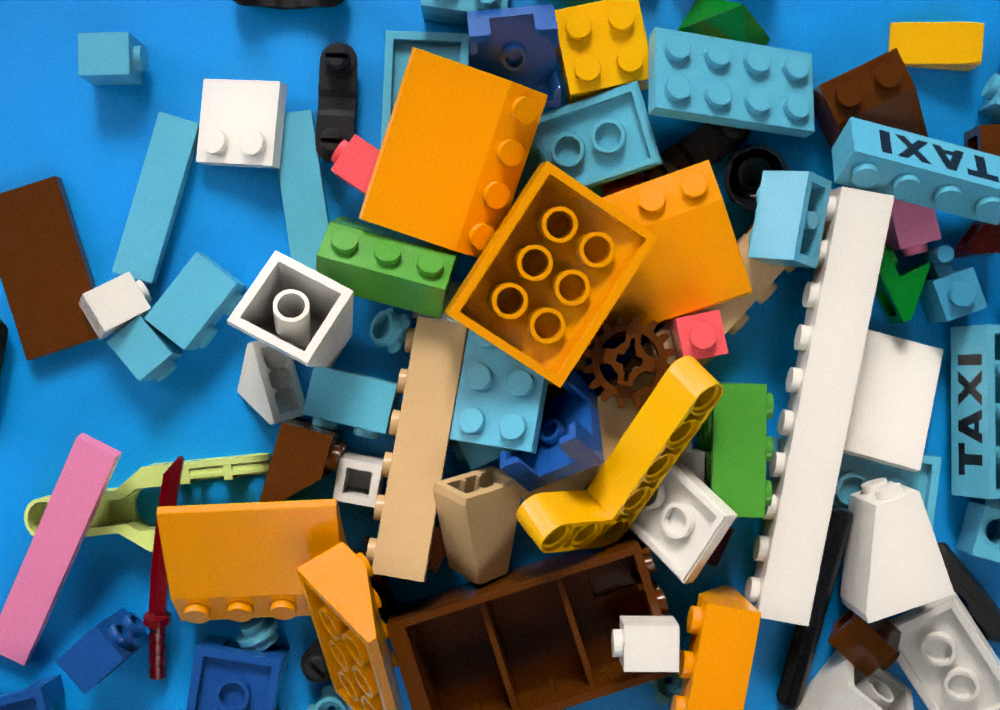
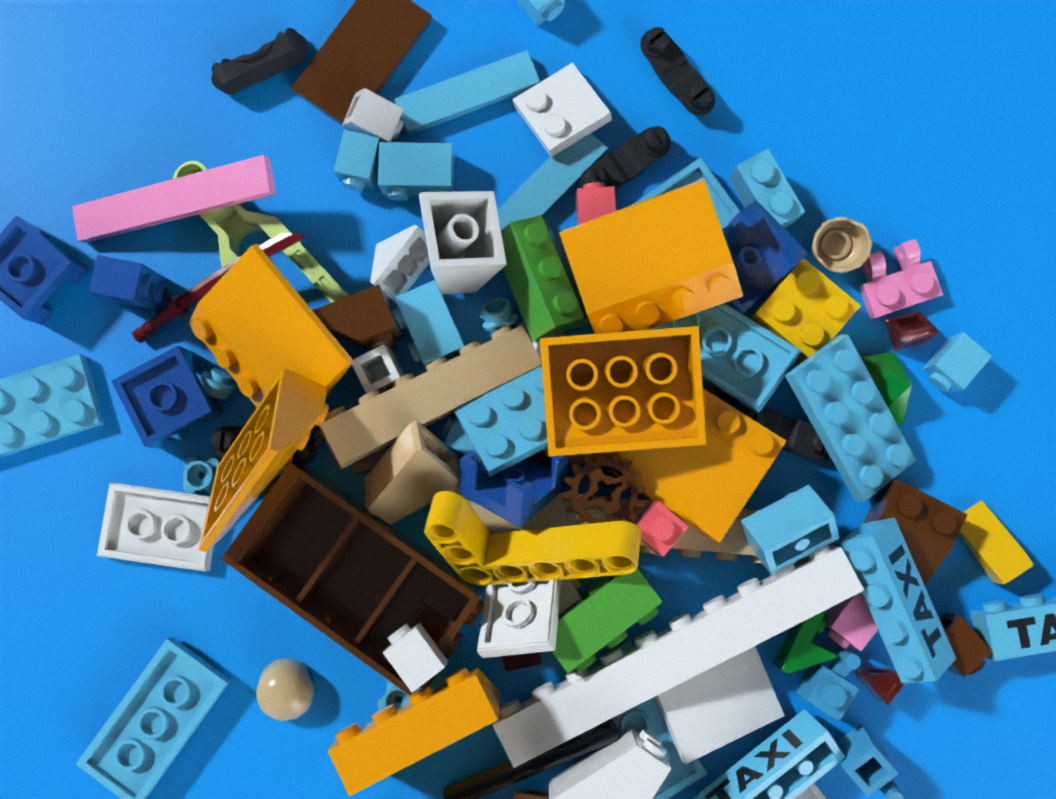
camera: 50 degrees right, 5 degrees down
(744, 173) = (797, 474): black hair -> none

